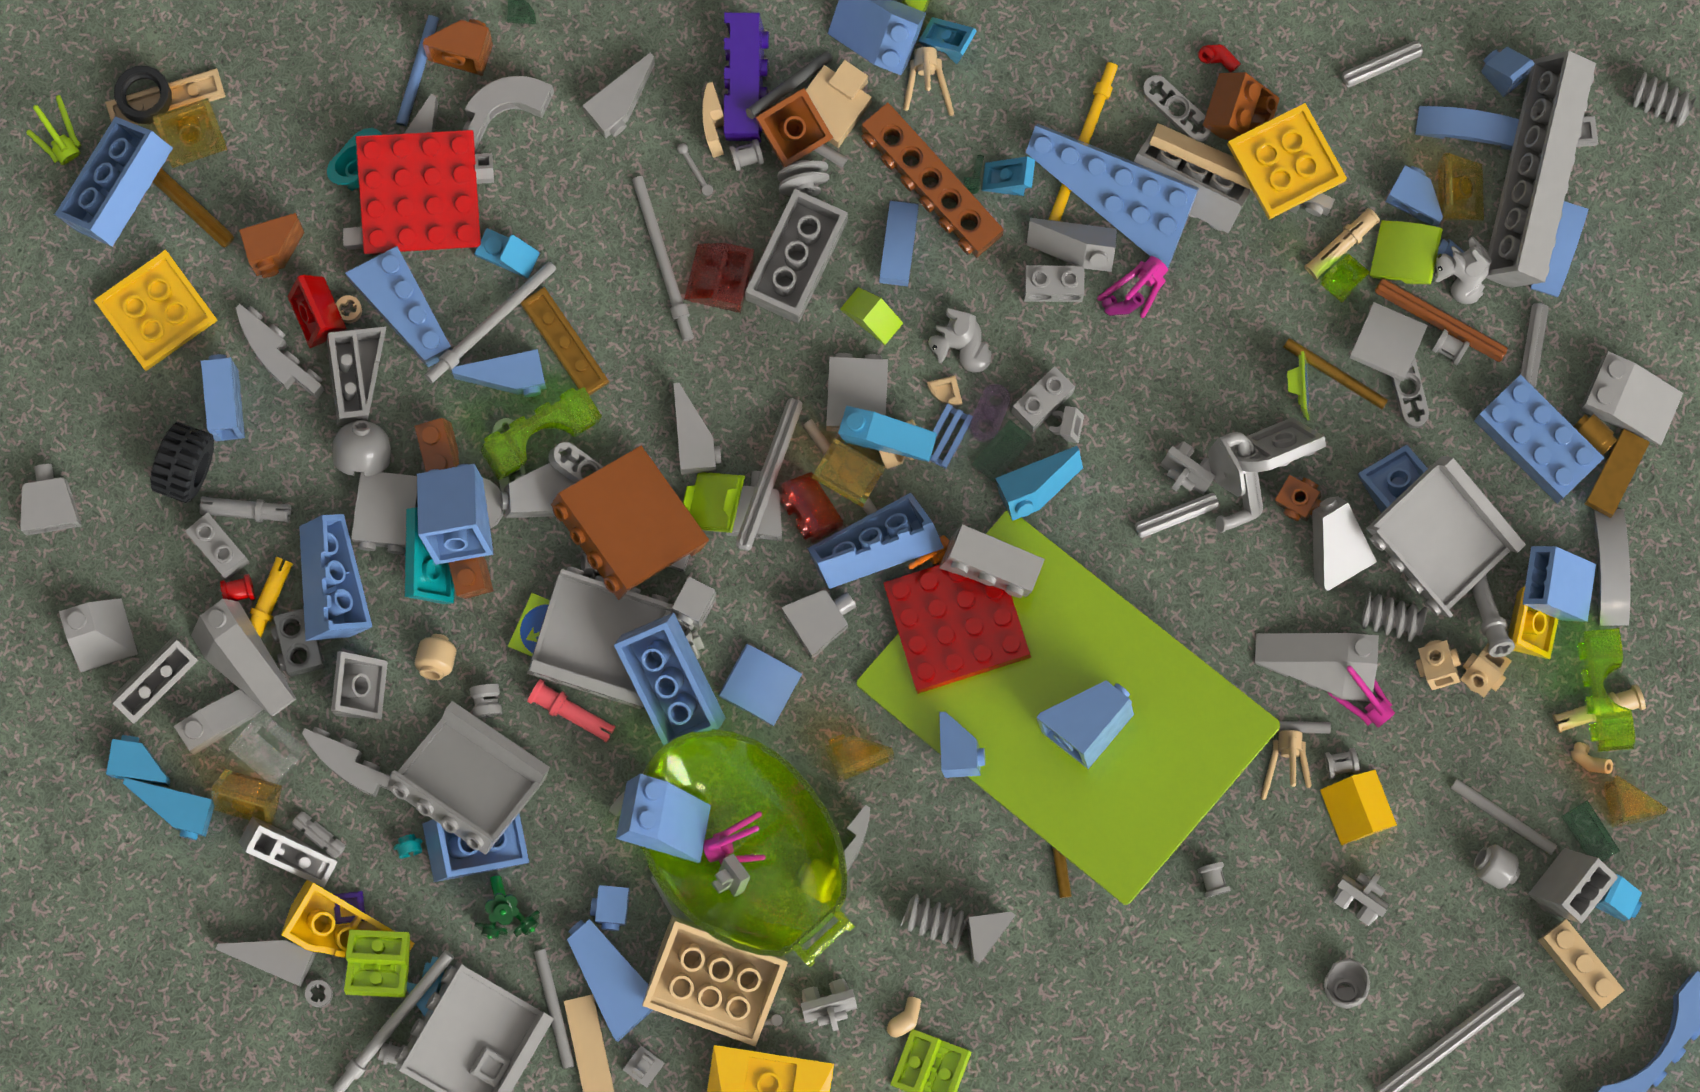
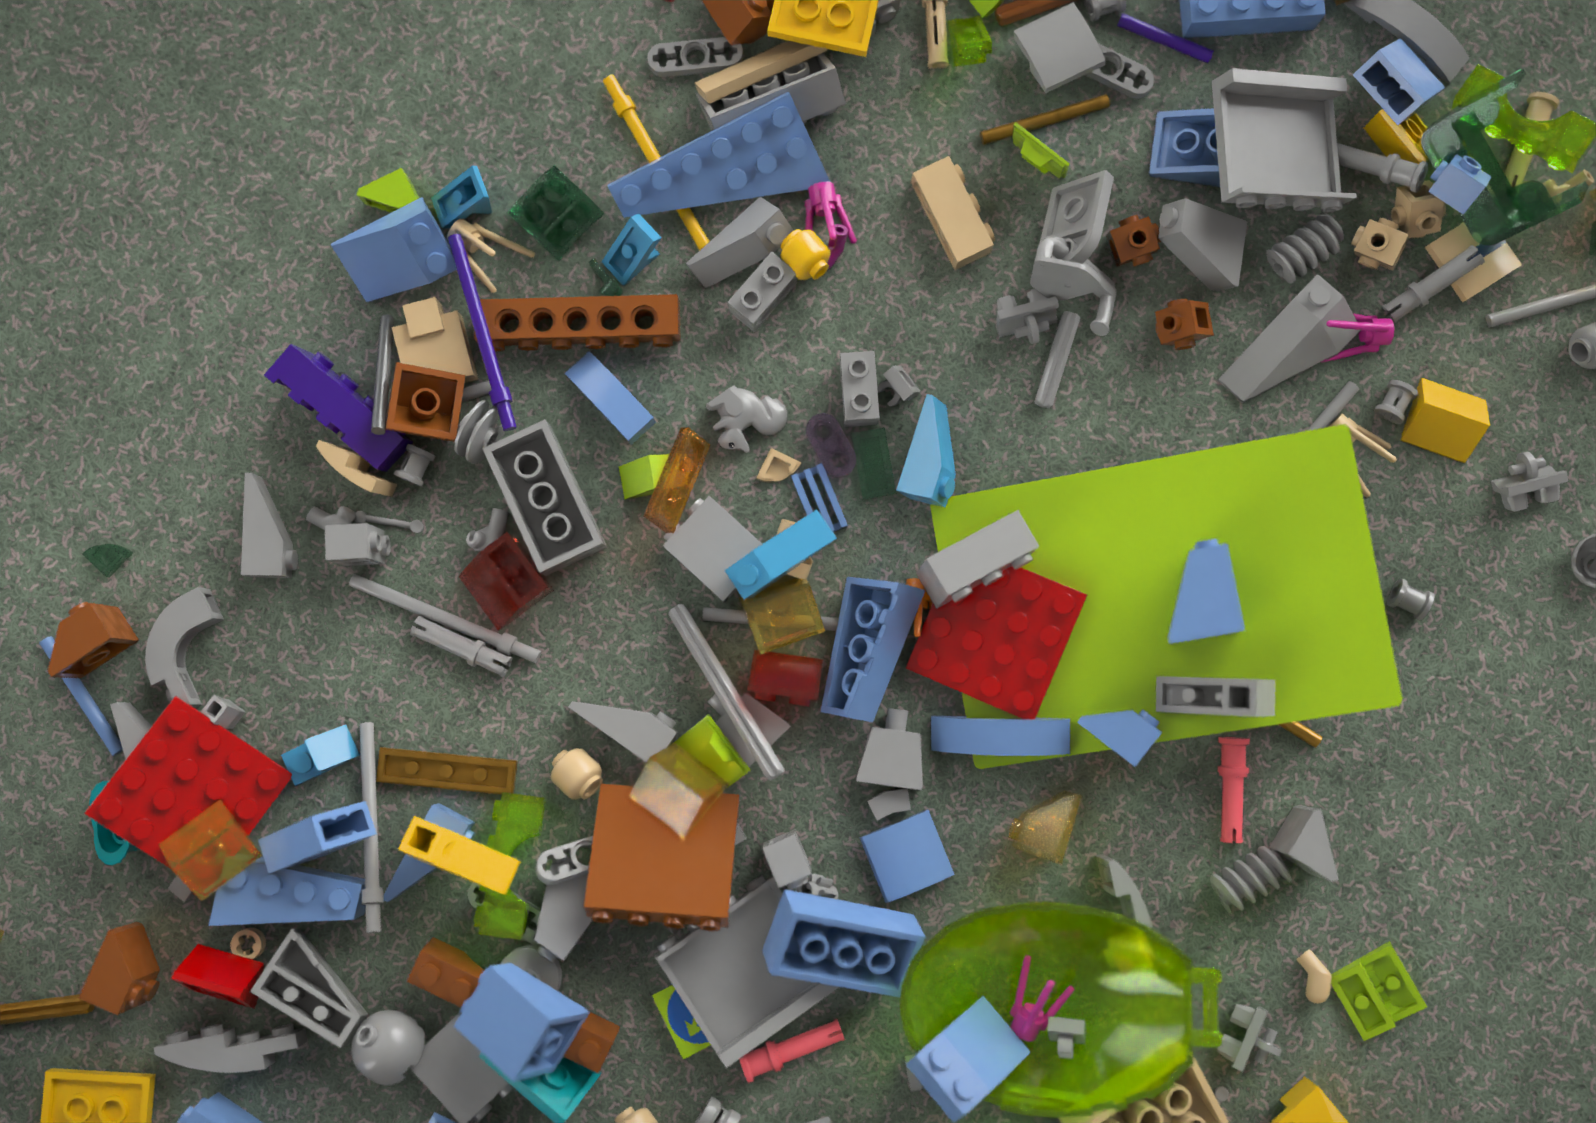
camera: 45 degrees left, 5 degrees up
(396, 234) = (209, 850): none -> clear yellow slope
(459, 293) = (317, 836): none -> medium blue brick
(523, 389) = (459, 855): none -> yellow slope
(633, 426) = (576, 774): none -> tan head
(657, 296) = (474, 652): none -> light grey pin
(664, 161) = (356, 544): none -> light grey brick
(665, 135) = (321, 518): none -> light grey arm
(680, 495) = (677, 788): none -> clear yellow slope
(750, 241) = (482, 538): none -> light grey arm
(785, 644) = (889, 802): none -> light grey piece
(840, 170) = (499, 394): none -> dark purple bar
(881, 330) = (677, 480): none -> clear orange tile
(891, 679) = (1000, 736): none -> medium blue slope
(996, 106) = (563, 212): none -> clear green slope
(997, 854) = (1233, 771): none -> coral pin
(1032, 785) = (1215, 696): none -> light grey slope
(1101, 289) = (805, 254): none -> yellow head
(1216, 364) = (953, 212): none -> tan brick
(1271, 576) = (1183, 323): none -> dark orange brick
(1441, 721) = (1434, 283): none -> light grey pin
(1462, 408) = (1165, 38): none -> dark purple bar
(1489, 736) = (1498, 260): none -> tan slope
(1515, 674) = (1459, 182): none -> medium blue brick
(1539, 688) = (1499, 208): none -> clear green windscreen

